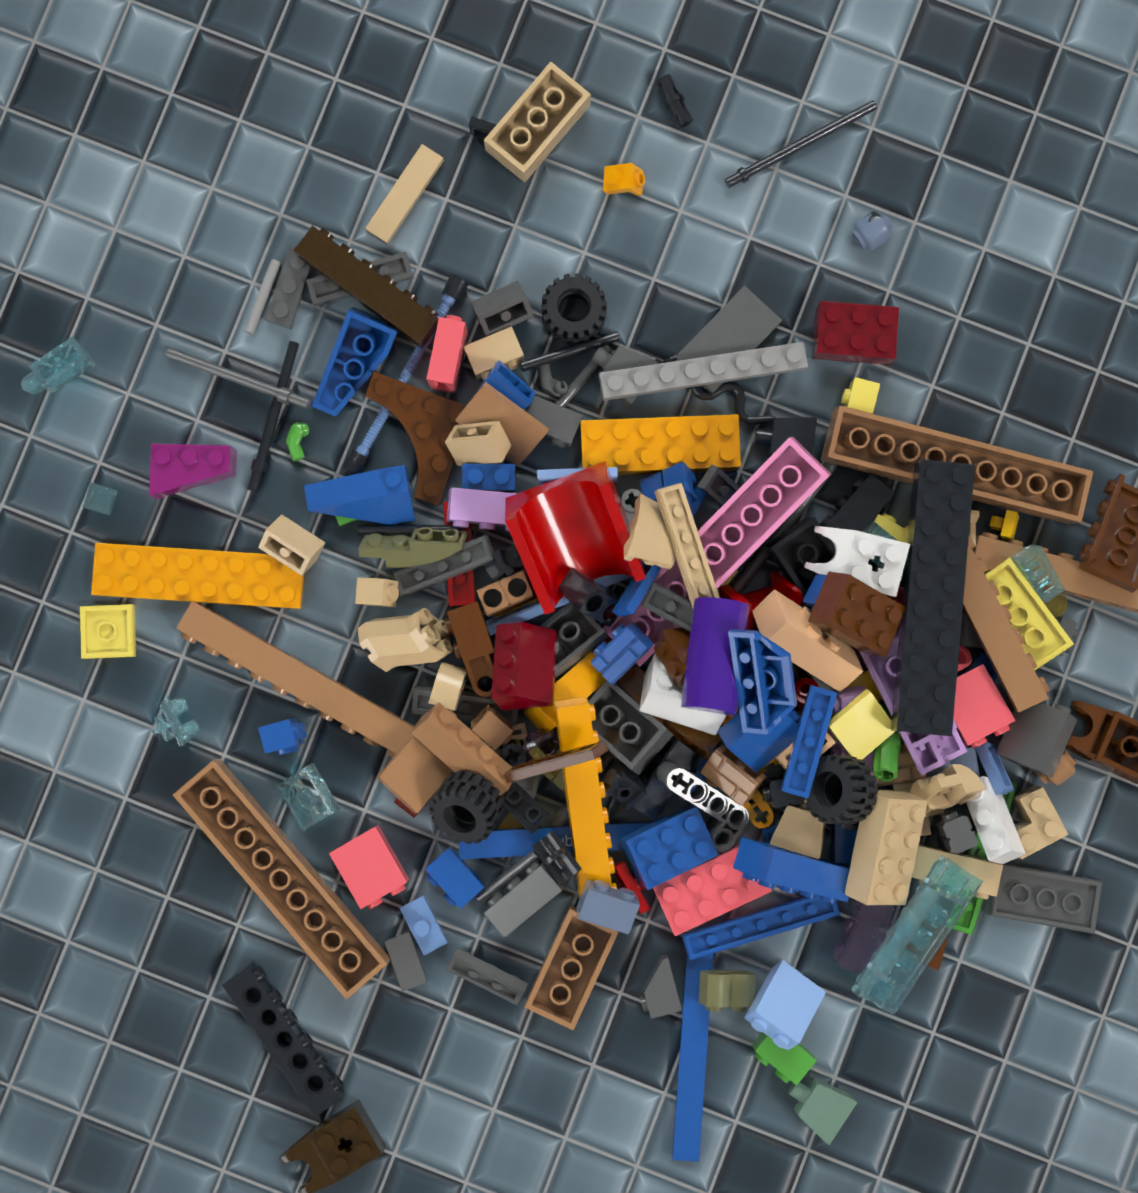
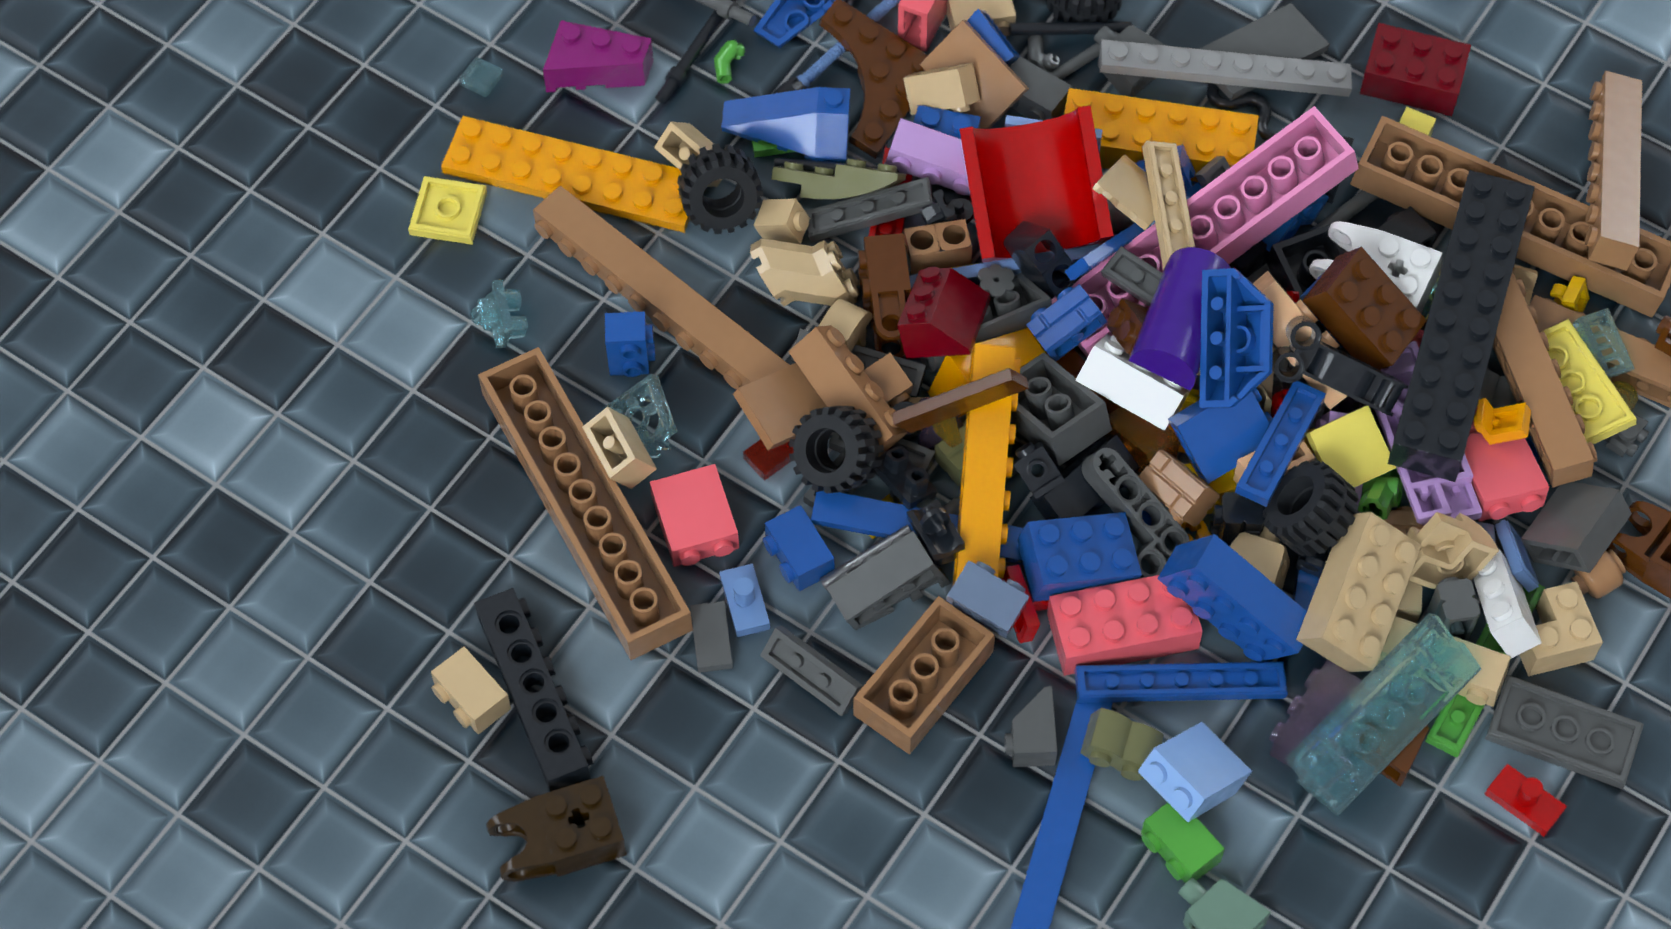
camera: 15 degrees right, 25 degrees down
(237, 1053) = (470, 691): none -> tan brick
(298, 835) = (619, 448): none -> tan brick
(320, 581) = (722, 212): none -> black tyre
(565, 619) = (996, 280): none -> dark grey plant
(841, 673) = (1336, 369): none -> black piece
(976, 675) = (1502, 423): none -> light orange bracket
(1024, 960) = (1526, 799): none -> red tile
(1030, 411) = (1614, 171): none -> medium nougat brick

